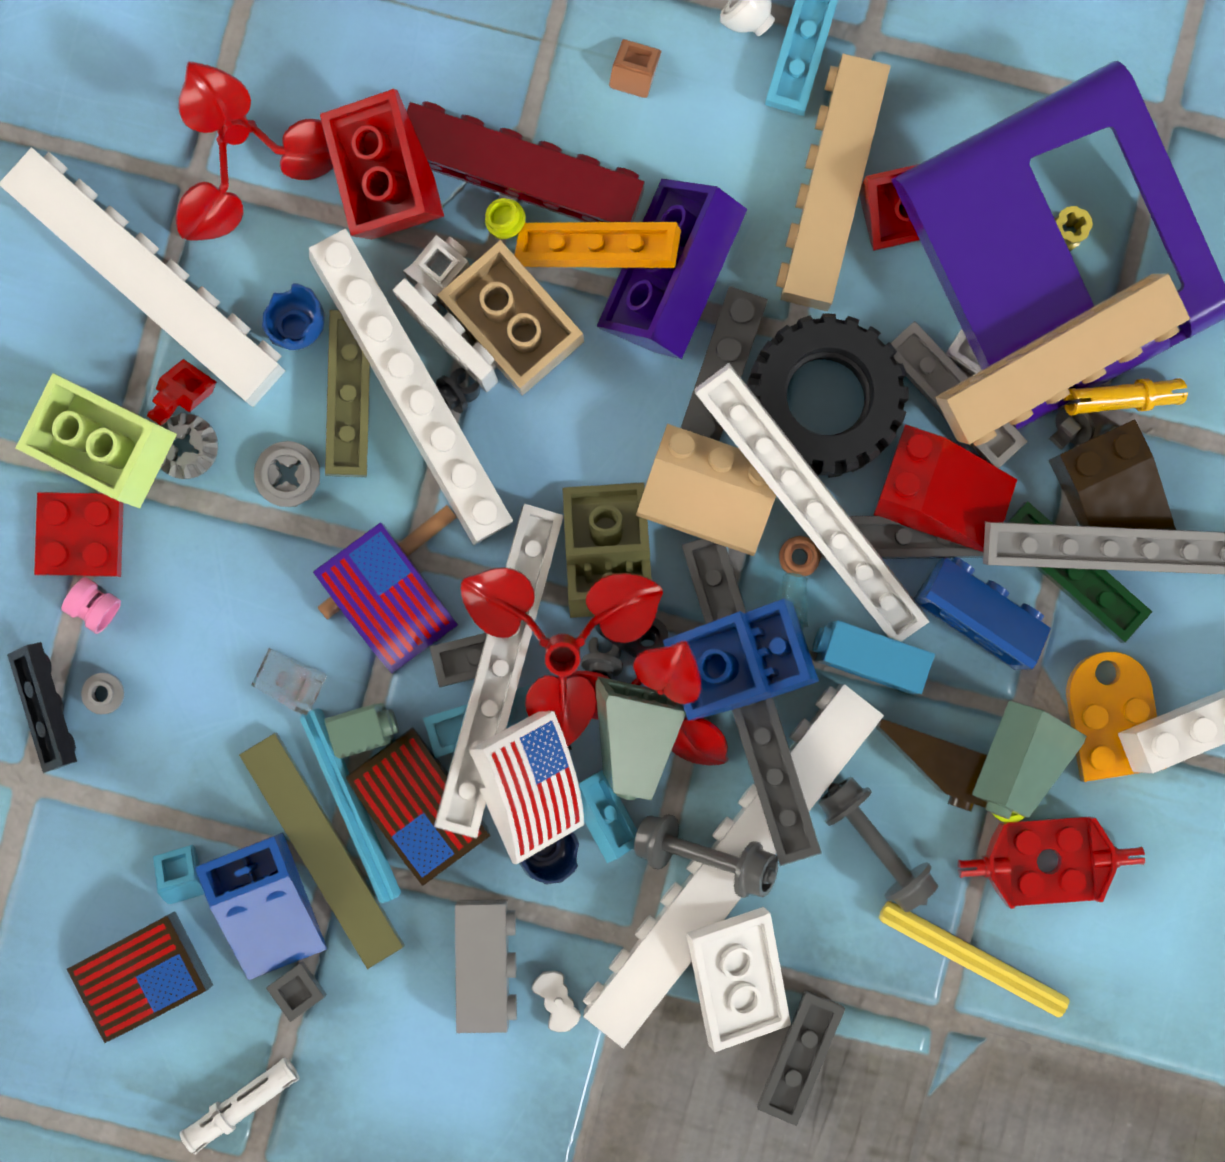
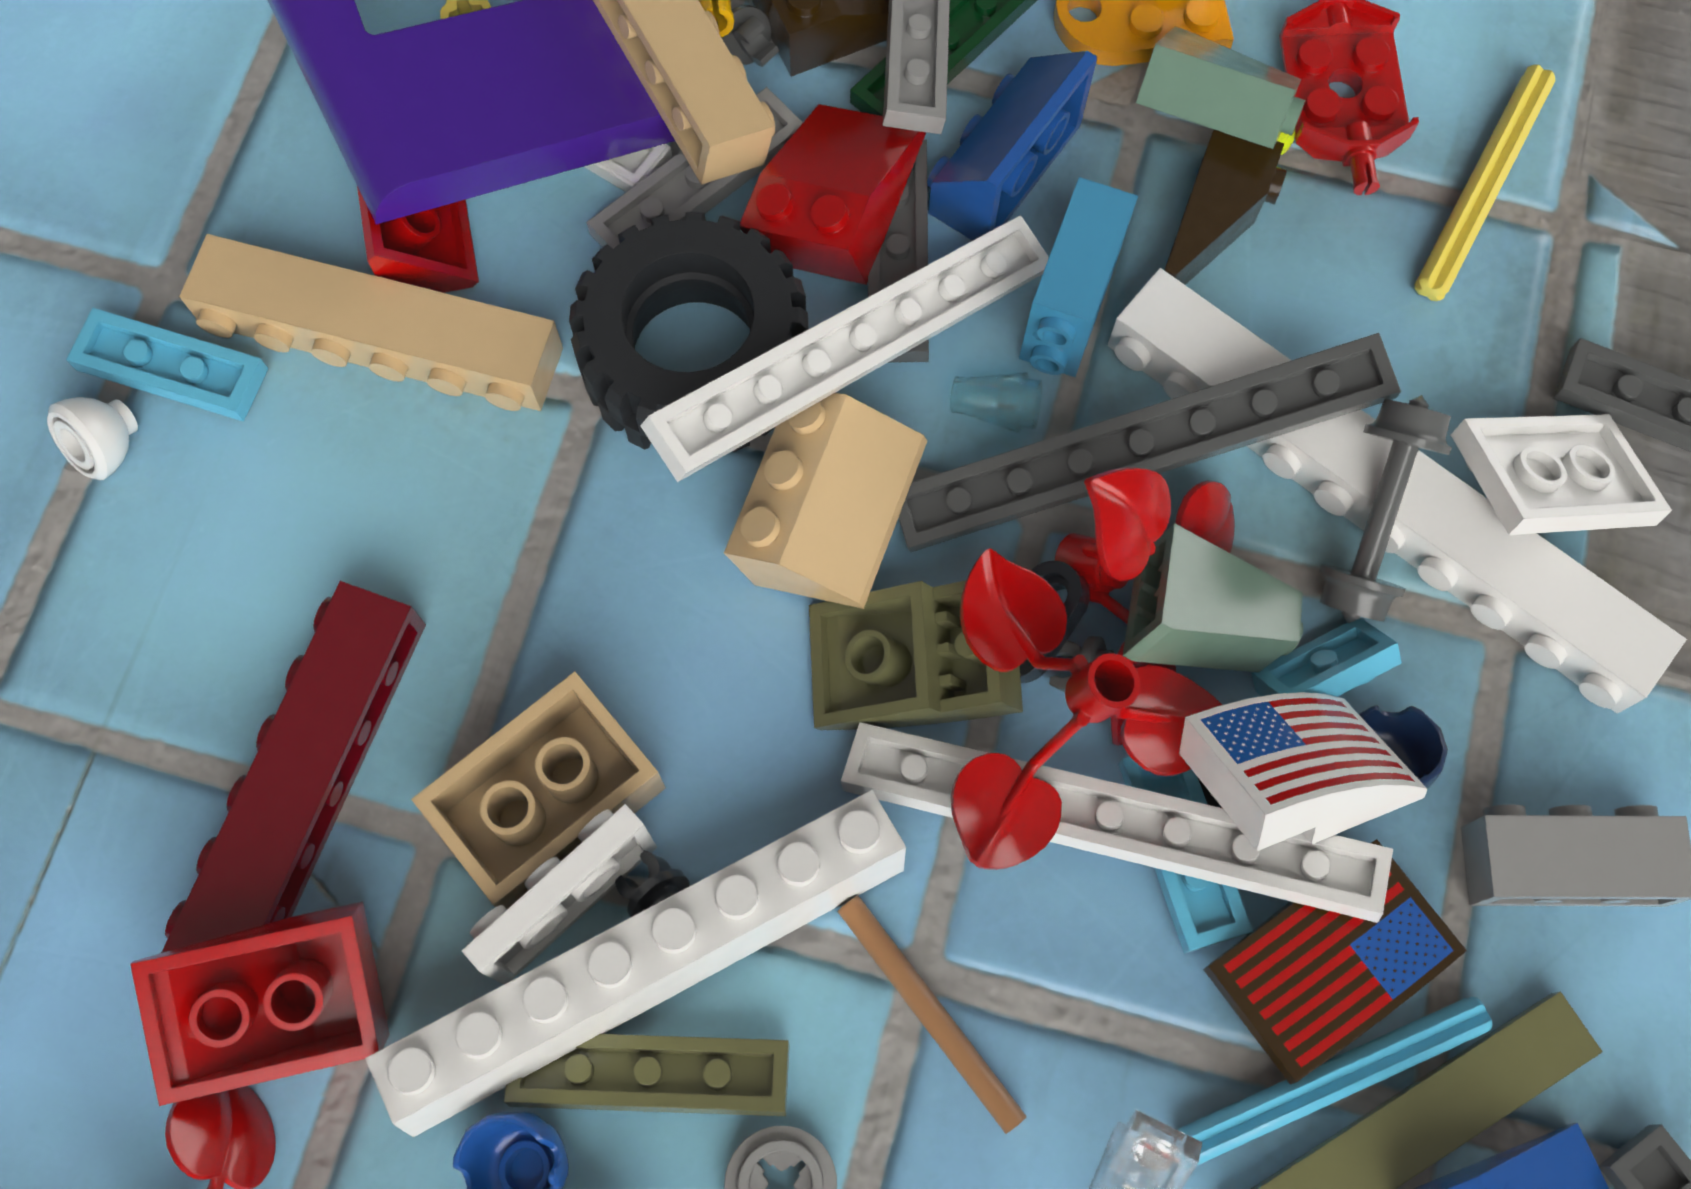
camera: 90 degrees left, 15 degrees down
(361, 730) = (1220, 1048): sand green brick -> none
(385, 598) = (991, 1013): slope -> none
(438, 265) = (441, 912): white window -> none
(457, 659) = (1091, 892): dark grey plate -> none
(504, 218) = (376, 808): neon yellow plate -> none
(556, 1000) = (1615, 749): white piece -> none
(598, 244) = (433, 652): light orange plate -> none
(634, 68) = (161, 606): nougat slope -> none
(664, 304) = (477, 553): dark purple slope -> none
(729, 344) = (630, 486): dark grey plate -> none
(748, 658) = (1080, 420): blue slope -> none
(802, 543) = (924, 372): nougat plate -> none
(911, 886) = (1393, 248): dark grey piece -> none

